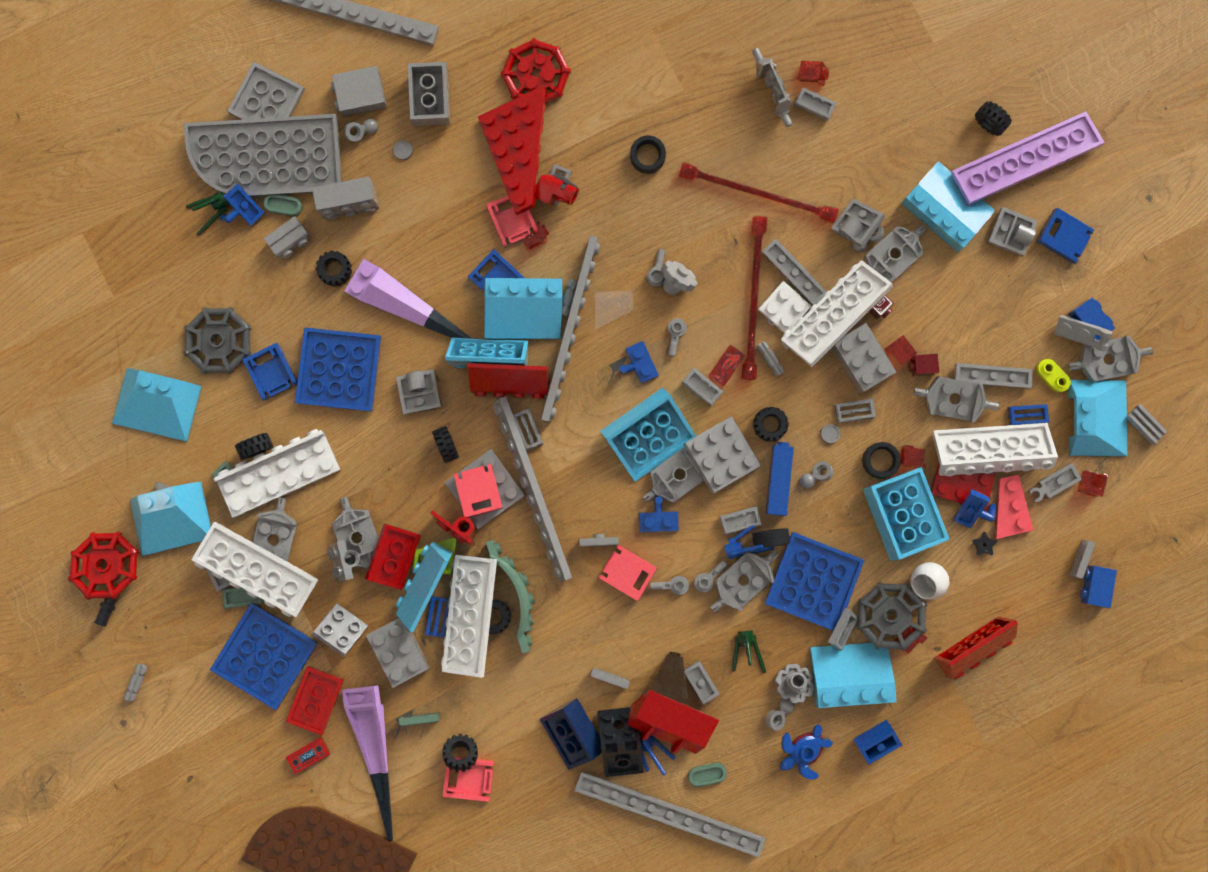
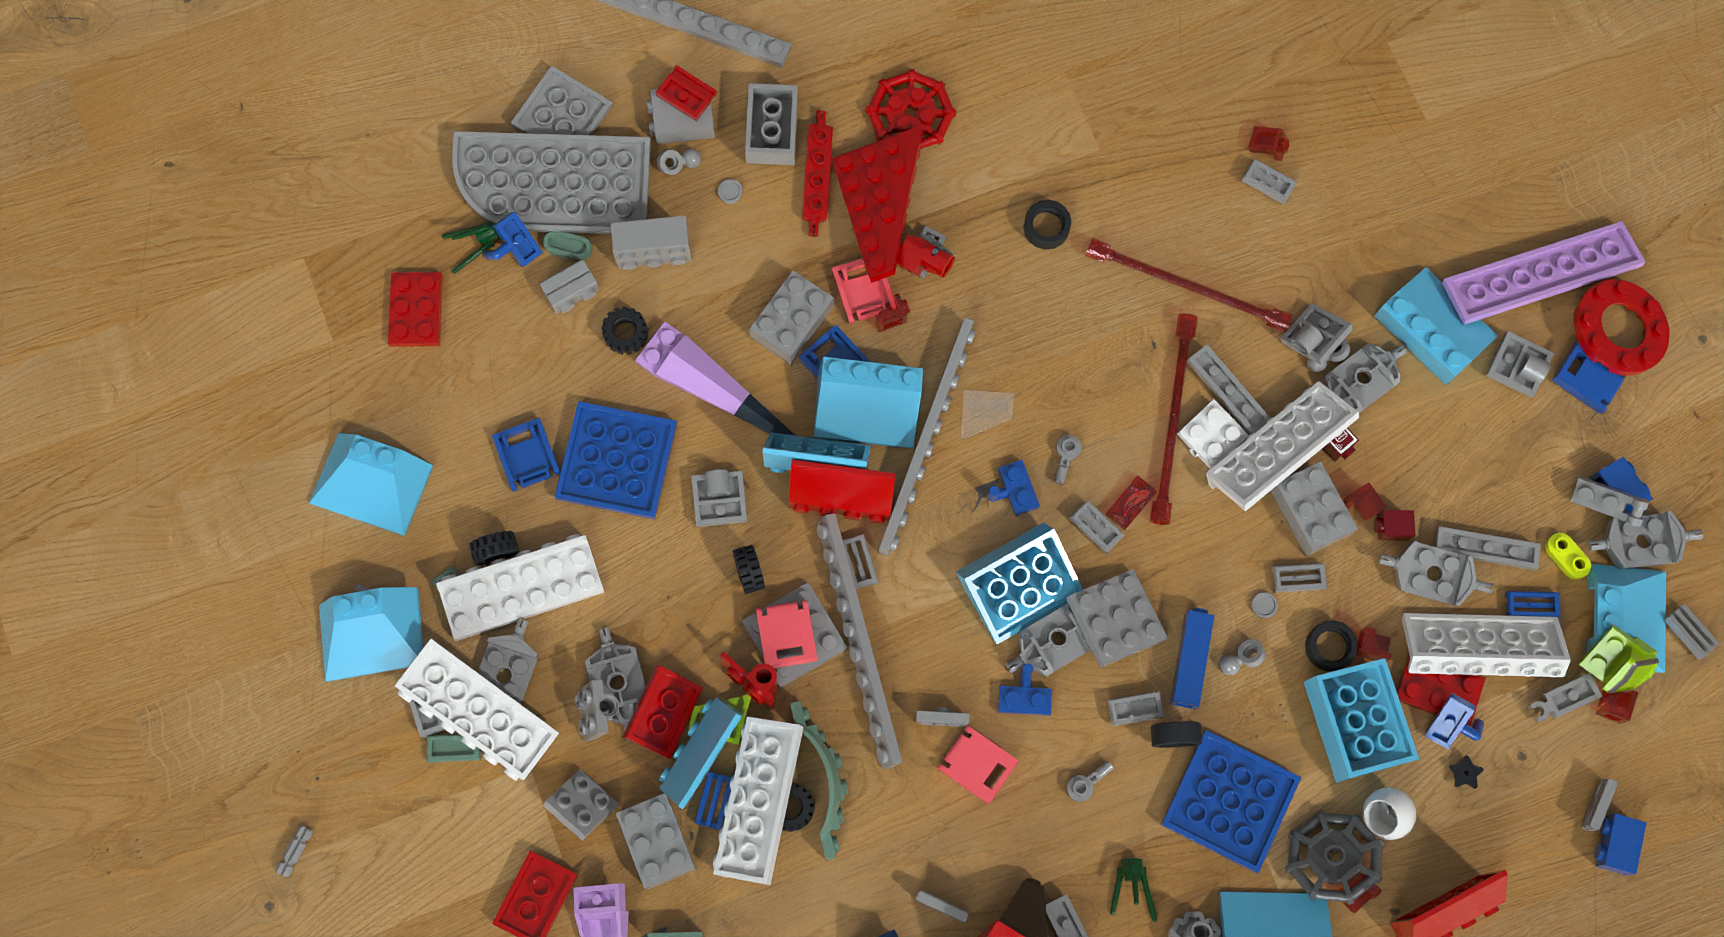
camera: 10 degrees right, 10 degrees down
(105, 611) = (271, 743): black pin -> none
(114, 567) = (282, 698): red plate -> none
(172, 266) = (415, 309): none -> red plate
(226, 346) = (468, 420): dark grey plate -> none
(264, 656) = (473, 831): blue plate -> none
(359, 76) = (686, 93): none -> red plate
(459, 246) = (792, 317): none -> light grey brick
(468, 129) = (817, 173): none -> red plate
(568, 297) = (929, 395): light grey axle -> none
(655, 275) = (1046, 378): light grey plate -> none
(677, 278) = (1074, 383): light grey plant -> none
(678, 585) = (1045, 788): light grey plate -> none
(736, 549) = (1126, 746): blue plant -> none
(758, 574) = (1155, 785): light grey plate -> none
(767, 68) = (1209, 131): light grey plate -> none
(770, 358) = (1190, 499): light grey axle -> none
(782, 421) = (1175, 596): black tyre -> none
(843, 629) = (1266, 869): light grey tile -> none
(993, 118) = (1500, 218): black tyre -> none
(1012, 509) = (1505, 728): coral wing -> none
(1068, 209) = (1596, 344): none -> red plate
(1094, 453) = (1620, 661): none -> lime piece

